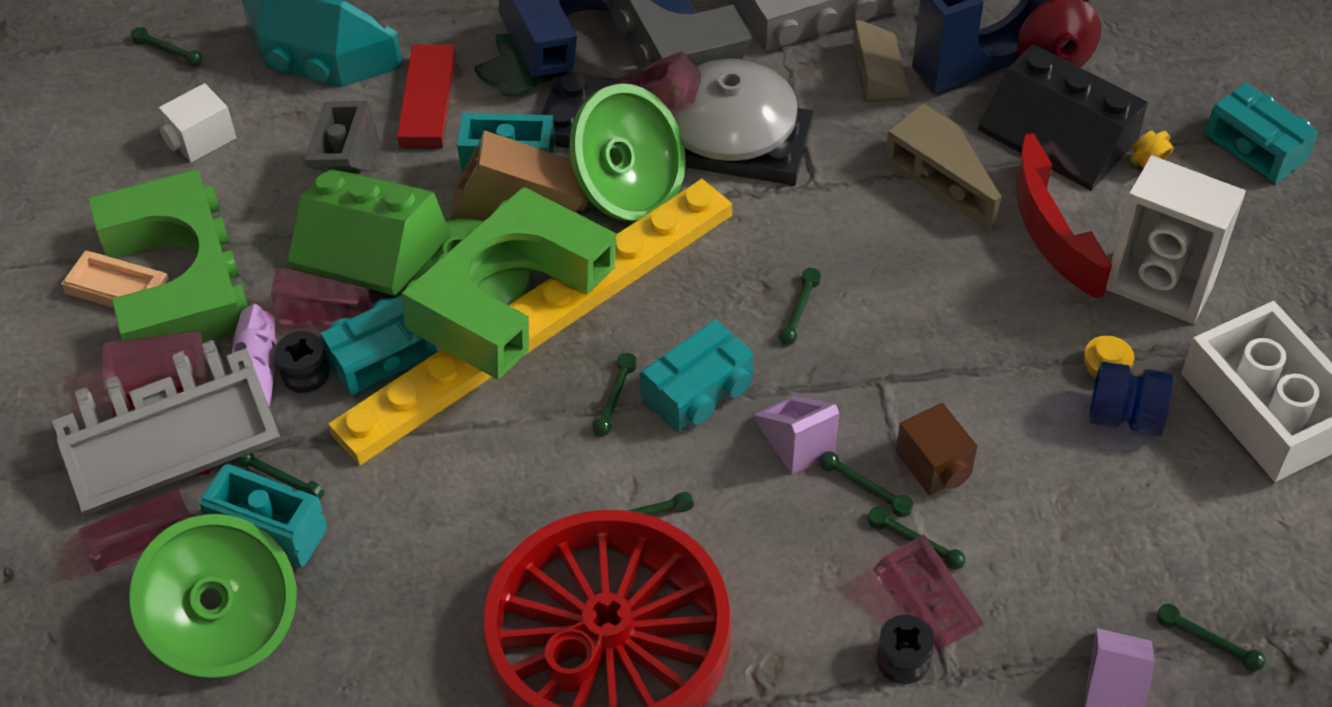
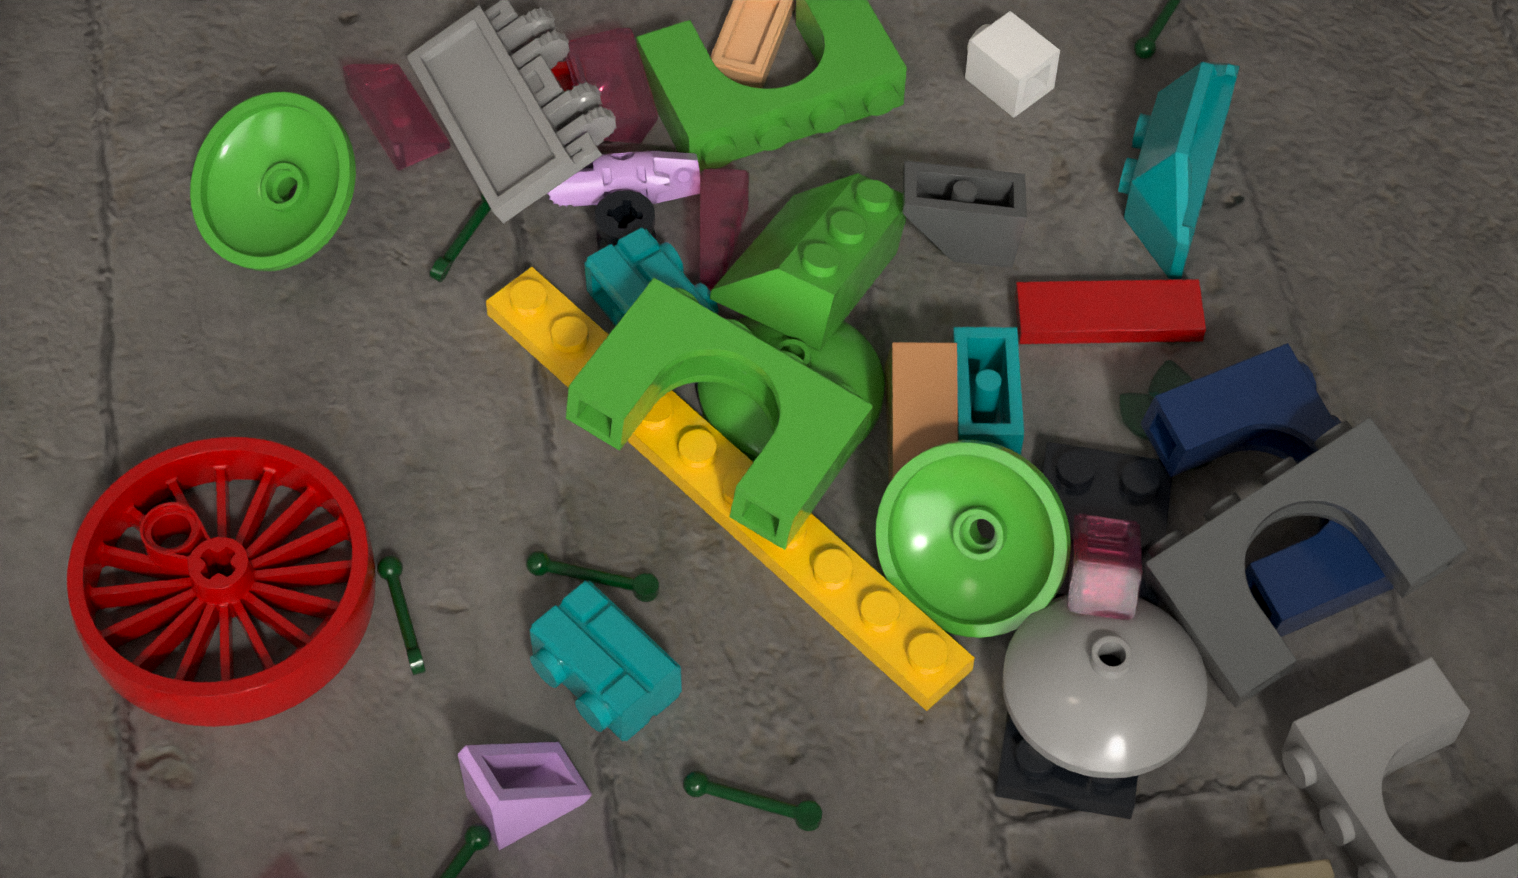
camera: 85 degrees right, 5 degrees up
(286, 515) = (381, 214): teal brick -> none

